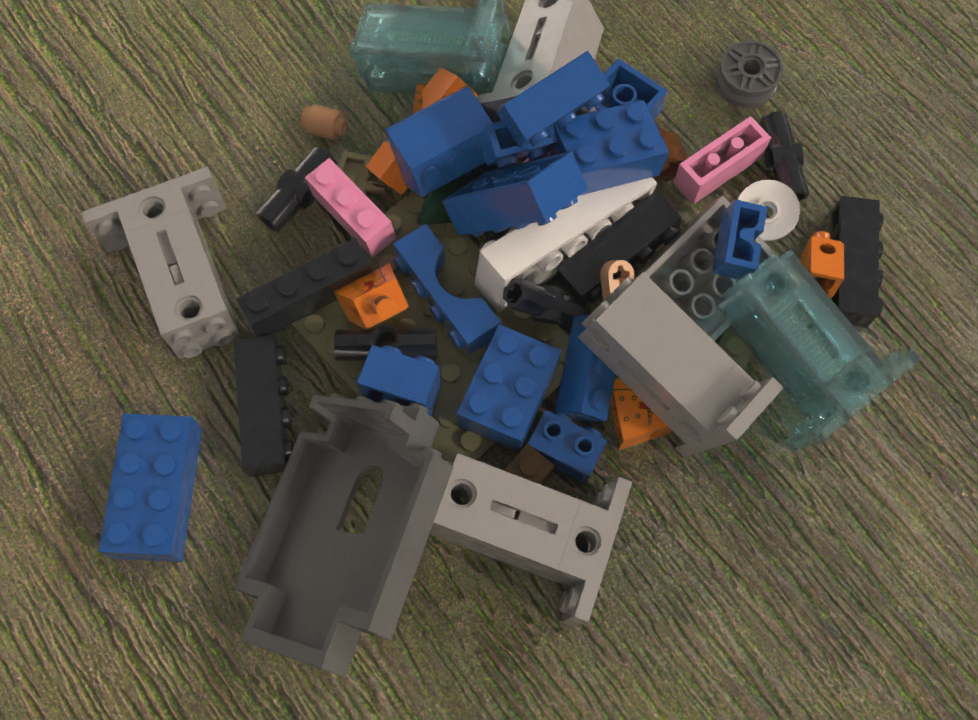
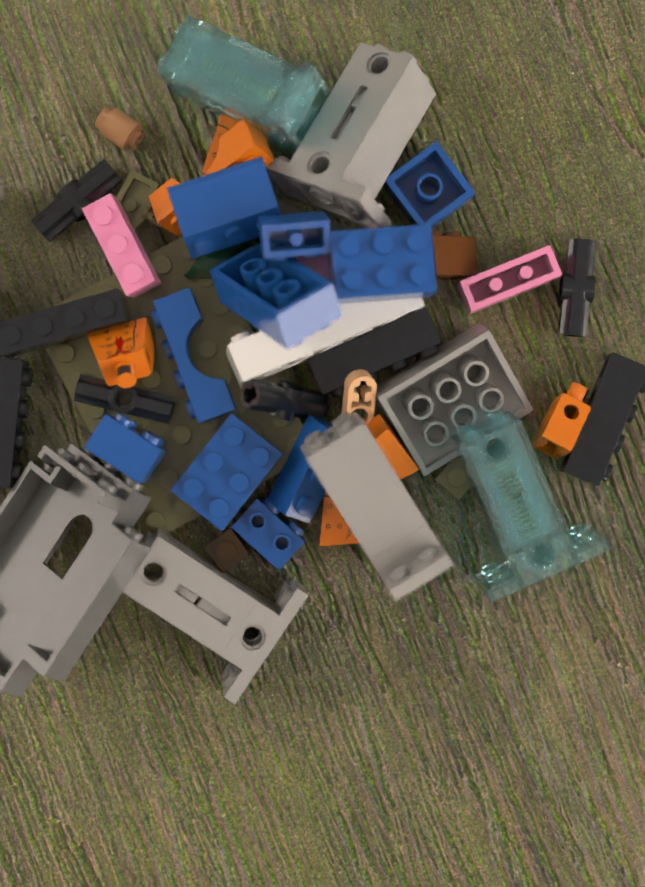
camera: 15 degrees right, 20 degrees up
(554, 100) = (332, 221): blue brick -> none
(736, 250) = (477, 394): blue brick -> none
(749, 73) = (581, 161): dark grey wheel -> none
(780, 201) = (532, 360): white dish -> none

